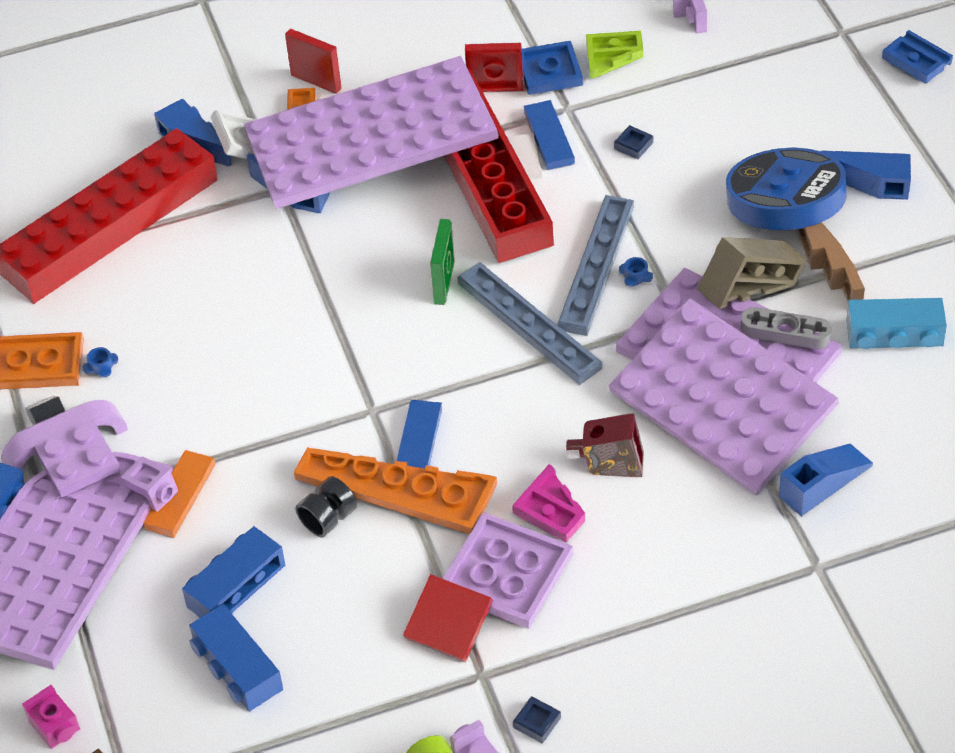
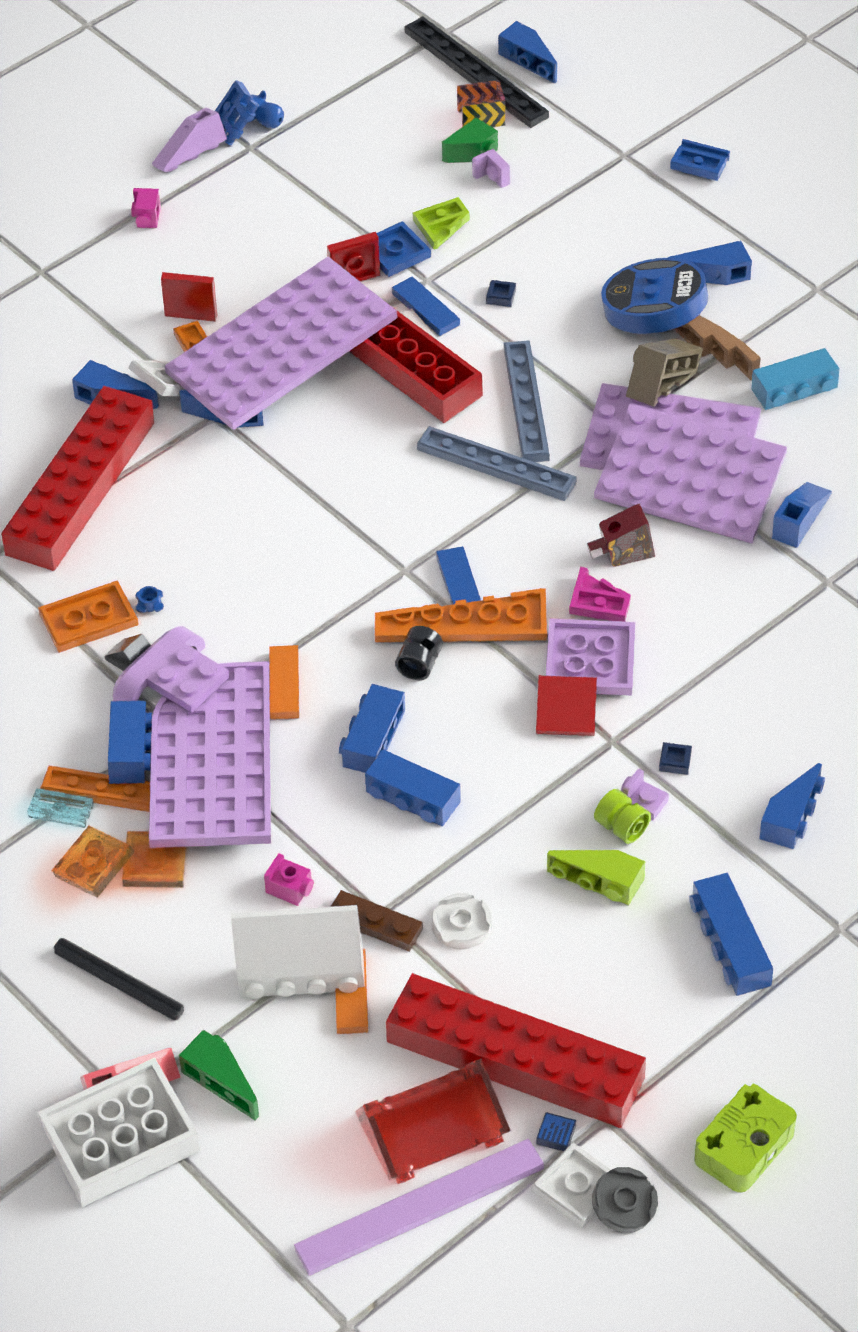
camera: 25 degrees left, 0 degrees up
(150, 481) = (263, 675): lavender bracket -> none
(442, 261) = (404, 432): green tile -> none
(635, 271) = (563, 397): blue plate -> none
(807, 323) = (733, 410): light grey beam -> none

